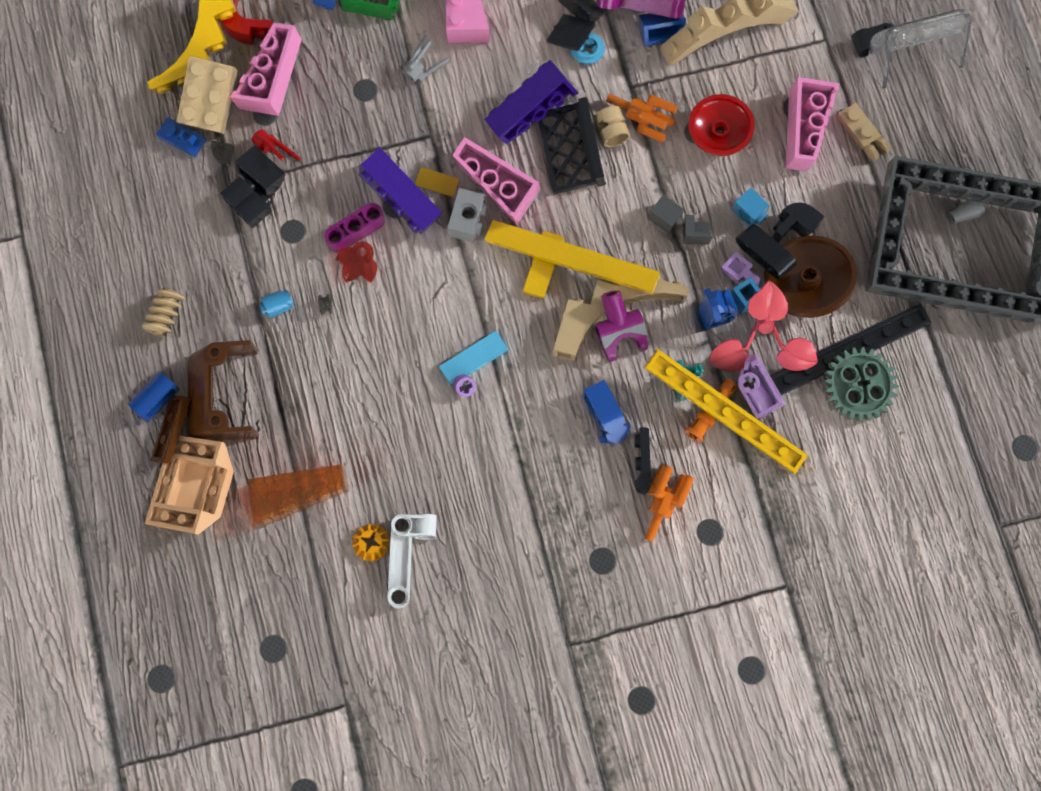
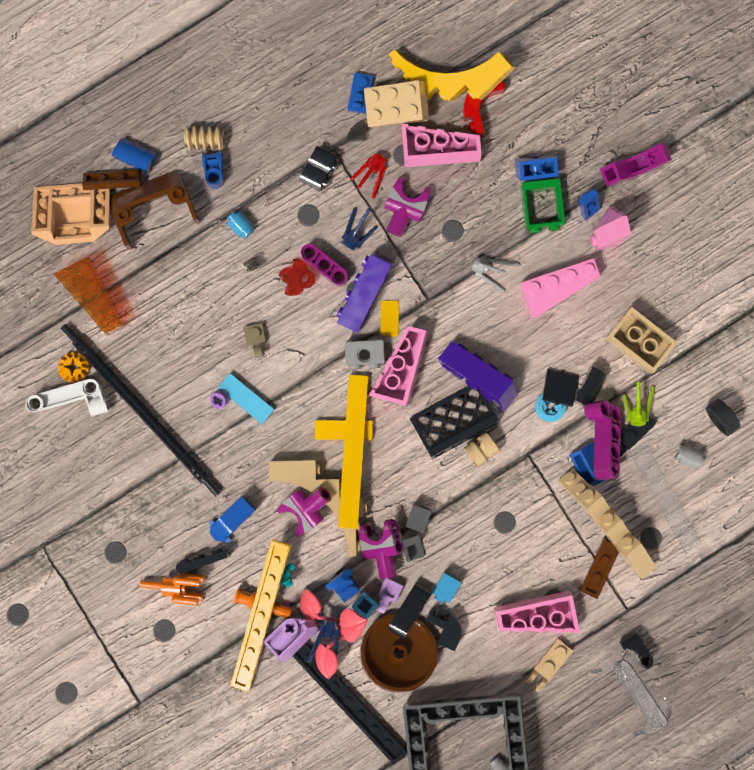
camera: 70 degrees right, 10 degrees up
(199, 313) = (213, 166): none -> blue piece
(260, 171) = (348, 171): black brick -> none
(322, 126) = (404, 208): none -> magenta connector
(336, 191) = (351, 239): none -> dark blue plant
(407, 327) = (255, 336): none -> dark tan plate
(445, 480) = (136, 405): none -> black axle
(645, 113) = (503, 474): orange plant -> none
(689, 258) = (382, 548): none -> magenta connector
(724, 114) = (525, 542): red dish -> none
(763, 344) = (326, 630): none -> dark blue plant
(774, 52) = (599, 569): none -> reddish brown tile
(840, 387) = (311, 703): sand green gear -> none

